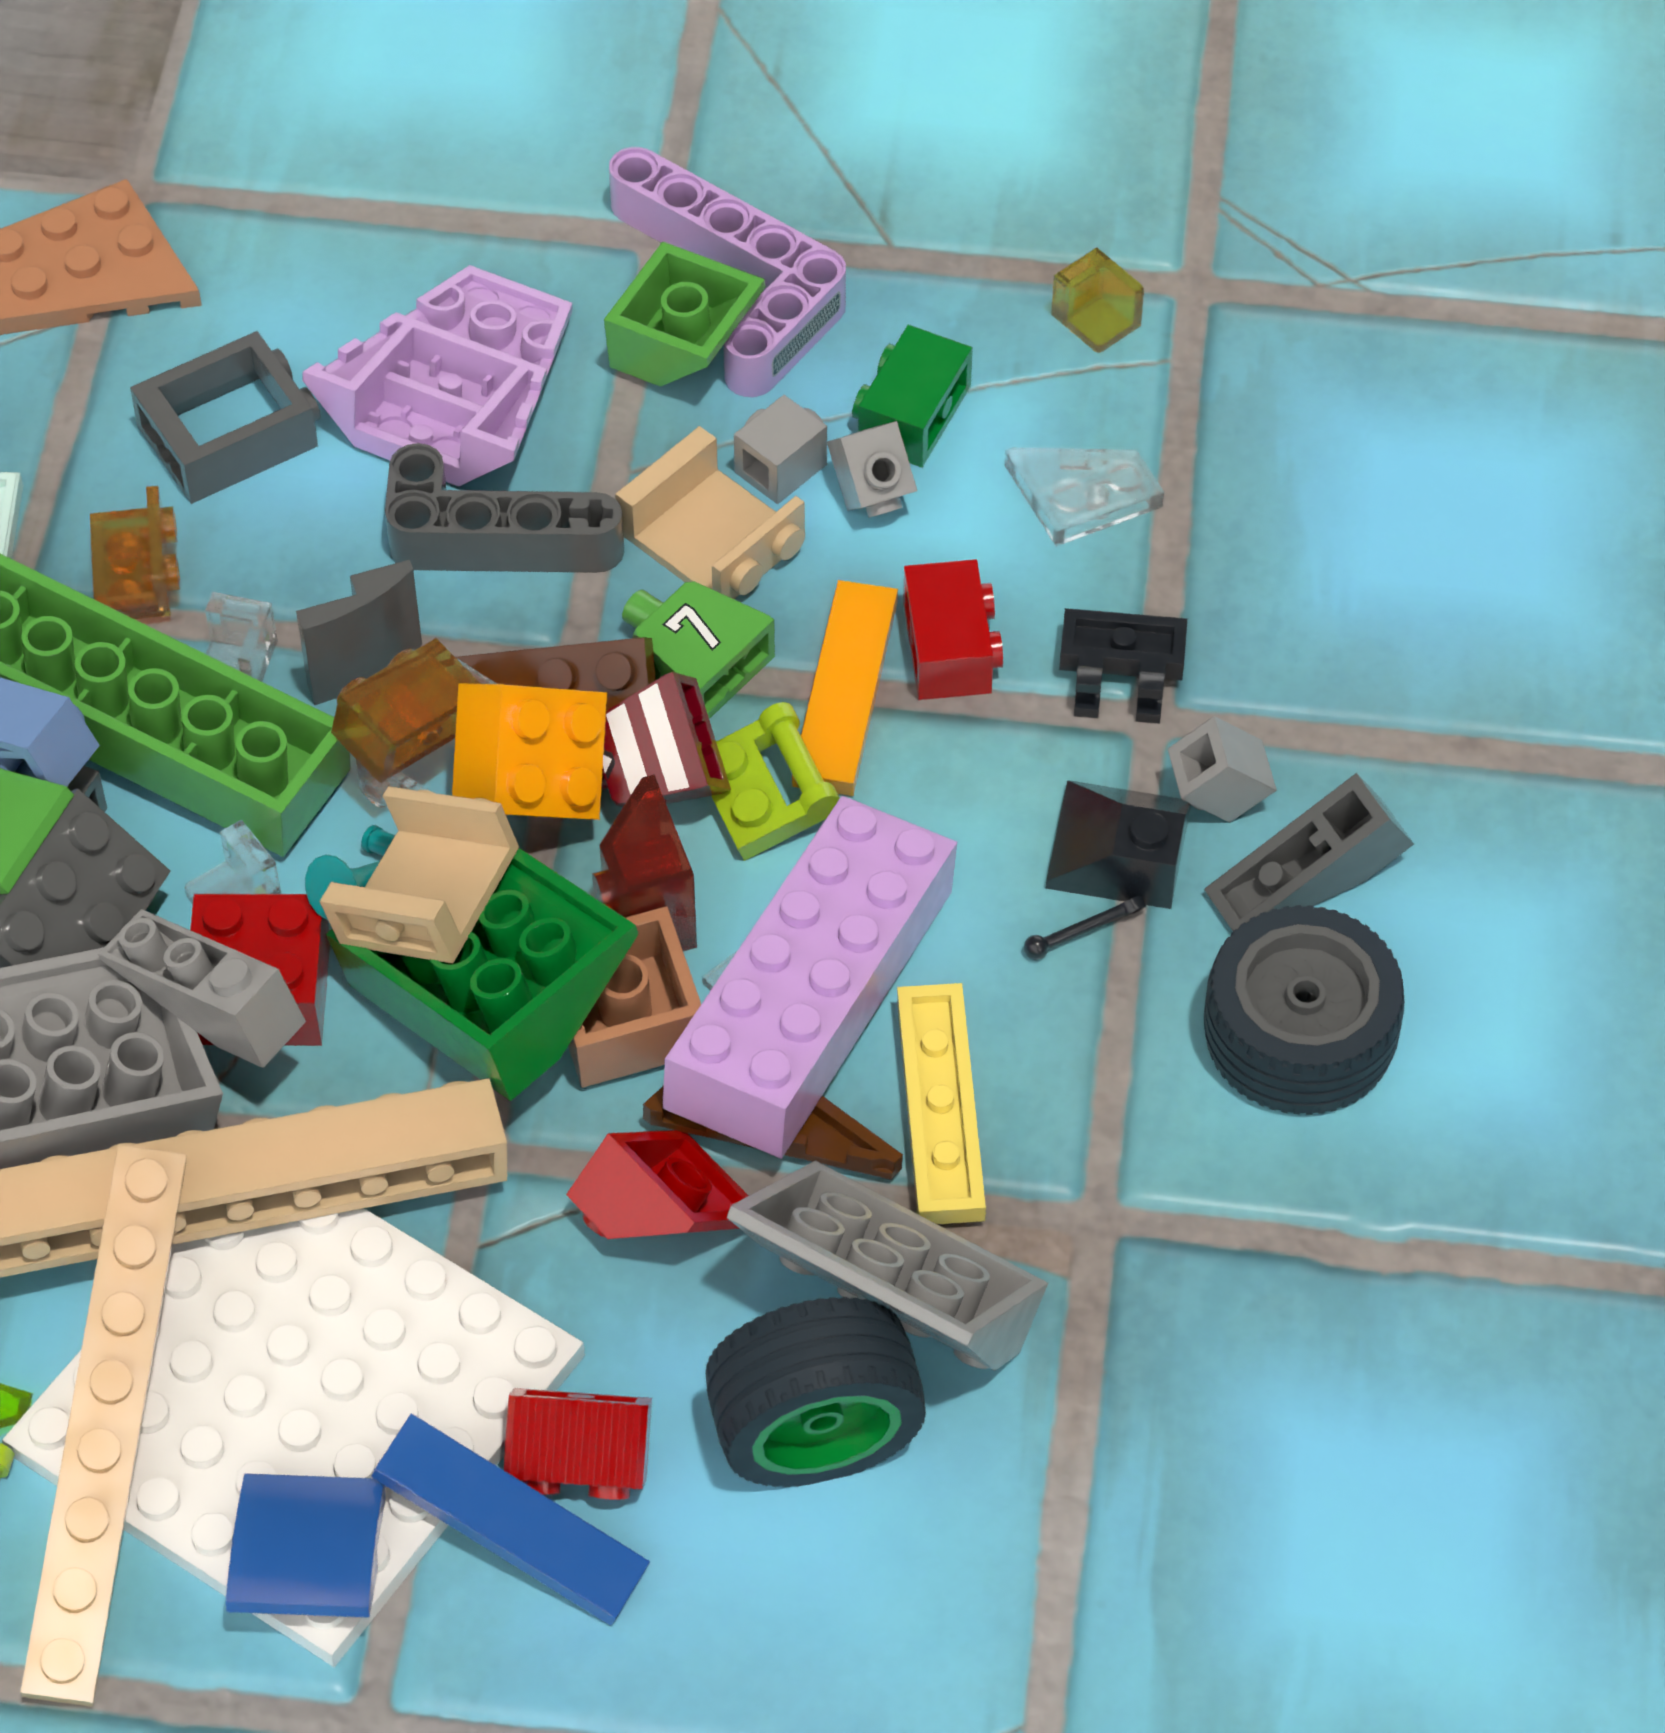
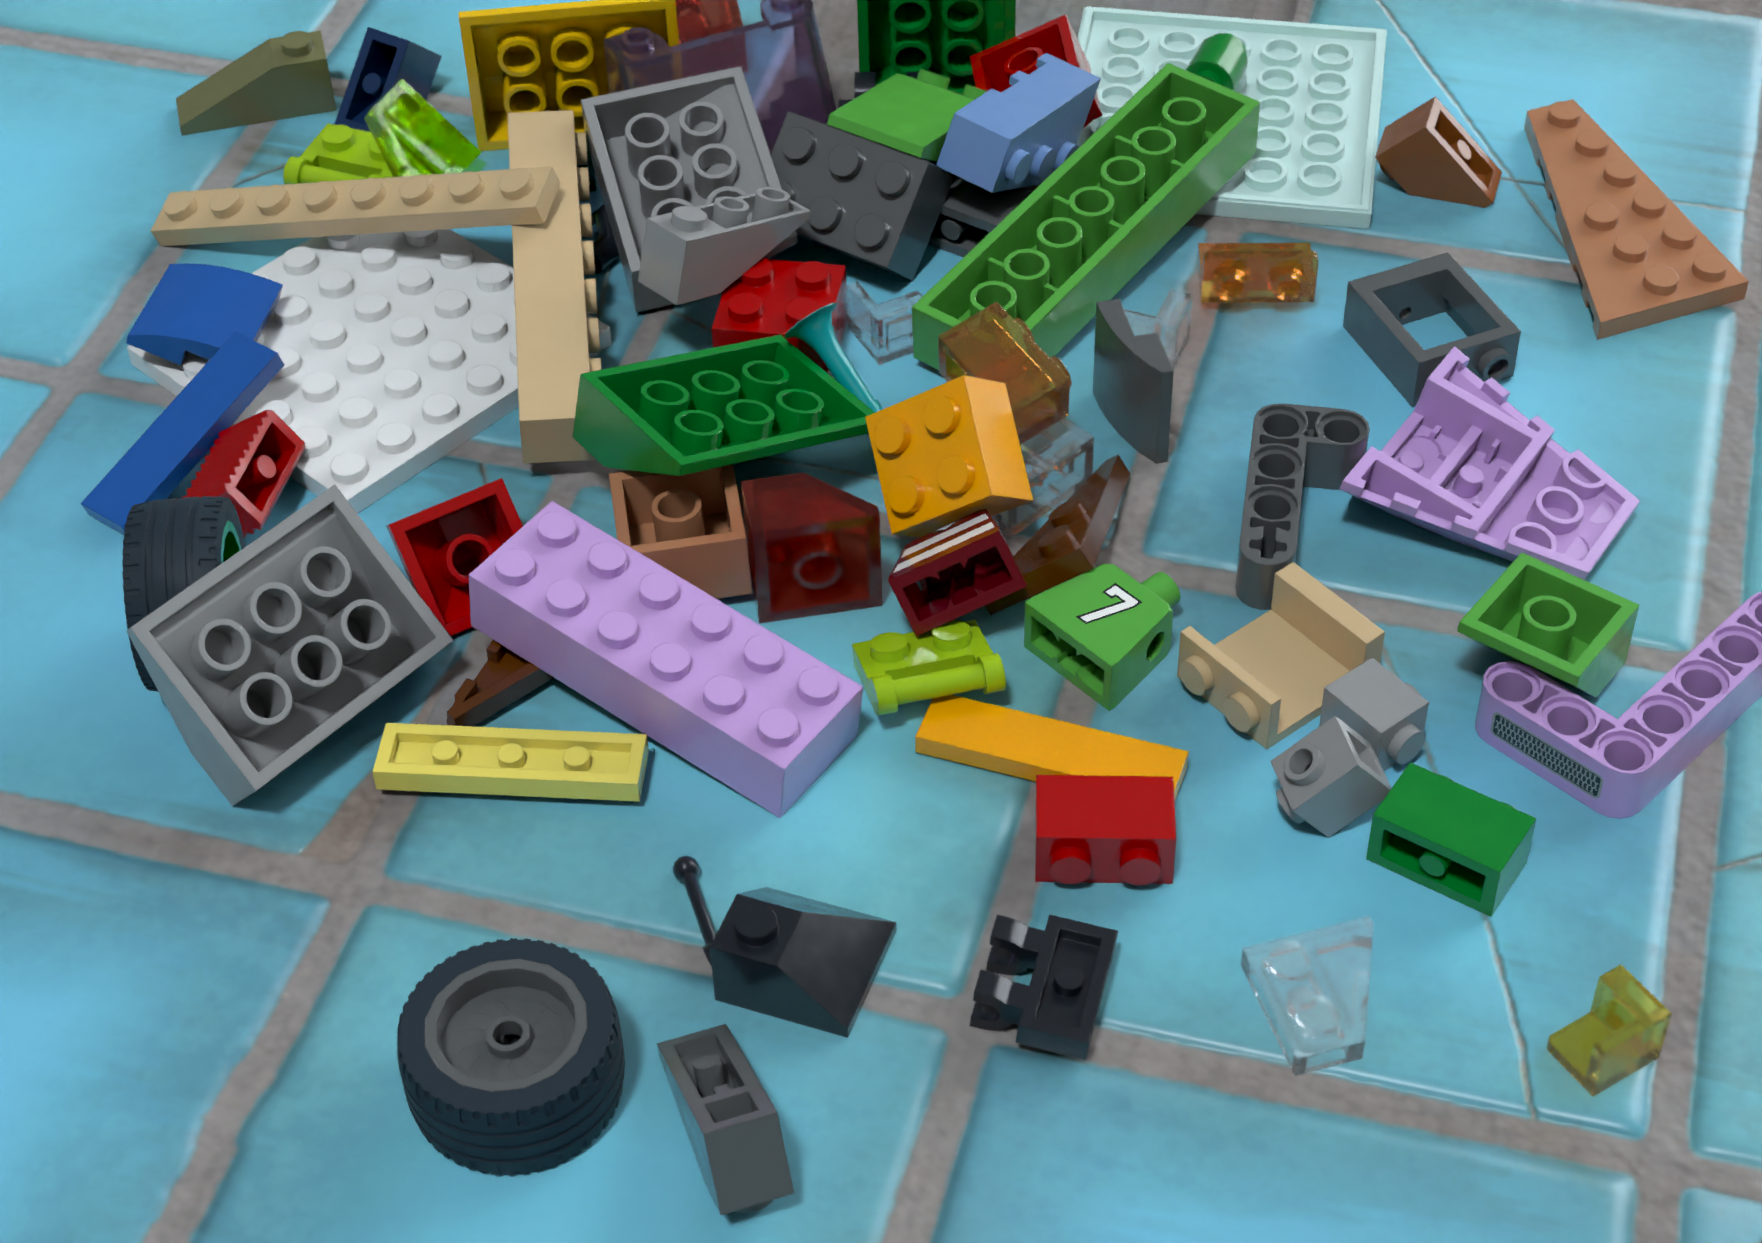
camera: 100 degrees right, 10 degrees down
(429, 878) = (755, 361): tan panel -> none
(1221, 769) = (853, 1036): light grey brick -> none

